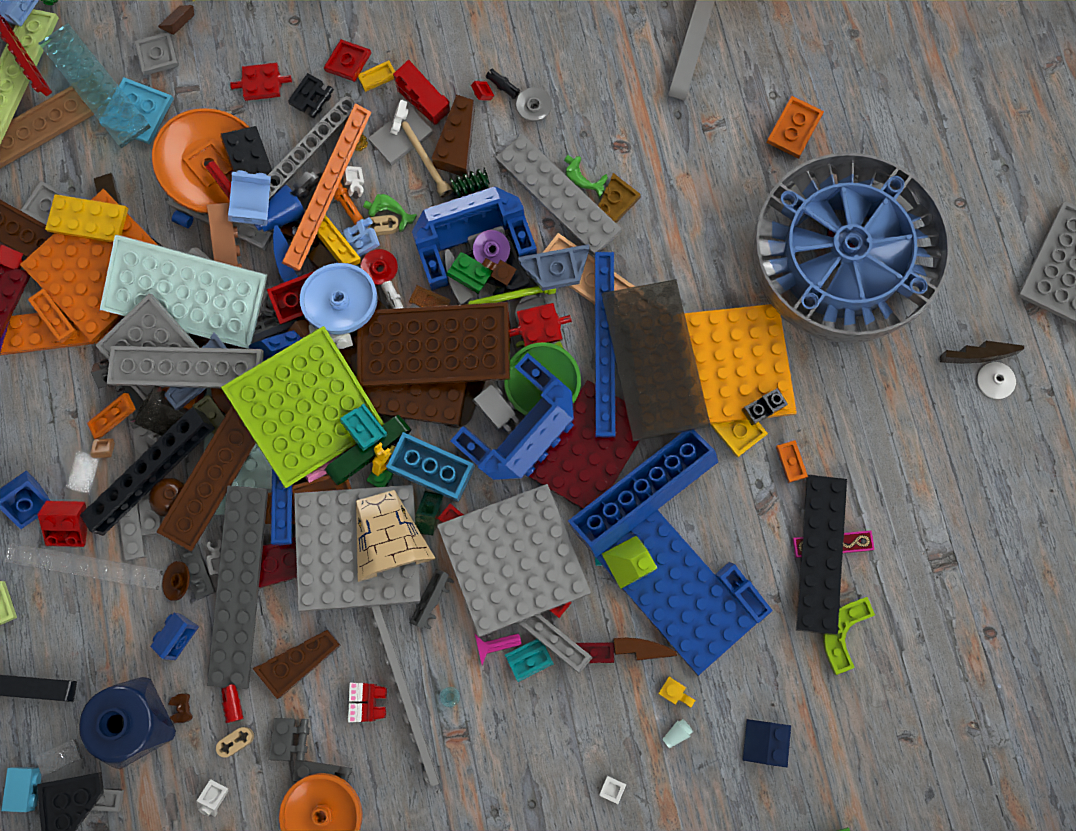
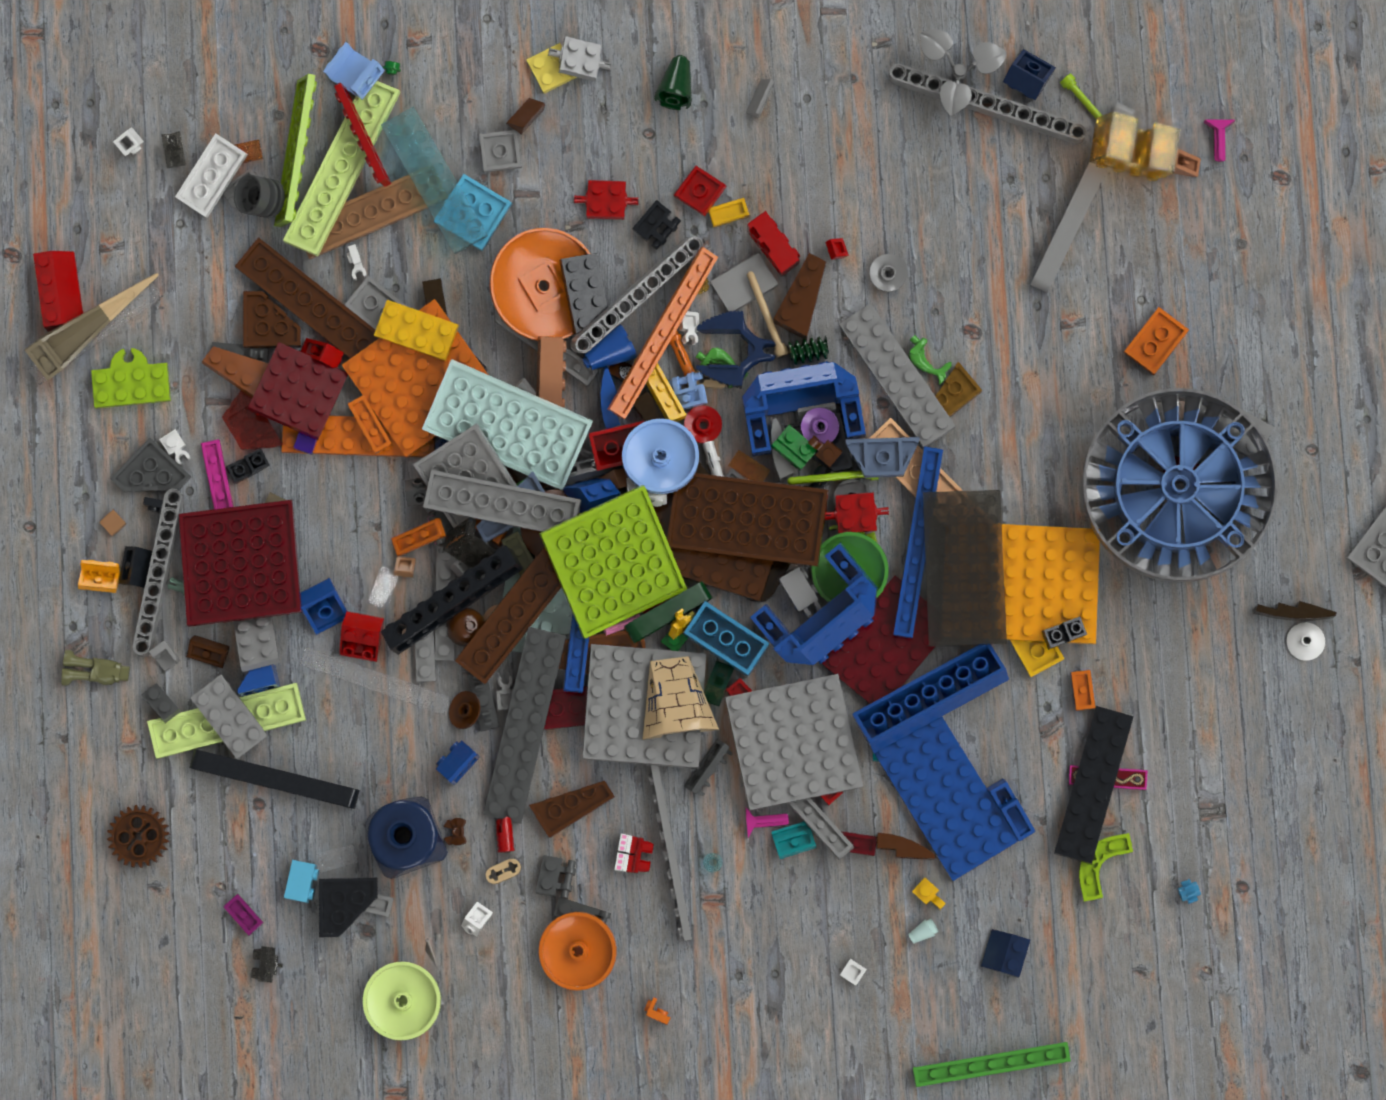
camera: 15 degrees right, 5 degrees up
(27, 166) = (354, 257): none -> white plate
(182, 219) = (508, 339): blue hinge -> none
(219, 177) = (558, 314): red axle -> none
(249, 198) = (584, 338): light blue panel -> none
(306, 183) = (647, 321): flat silver plate -> none
(363, 427) = (667, 590): teal plate -> none
(394, 172) = (734, 323): none -> dark blue piece
(401, 113) = (748, 263): white plate -> none
(502, 83) = (859, 243): black pin -> none
(629, 562) = (905, 762): lime slope -> none
(940, 646) = (1189, 891): none -> dark azure gear

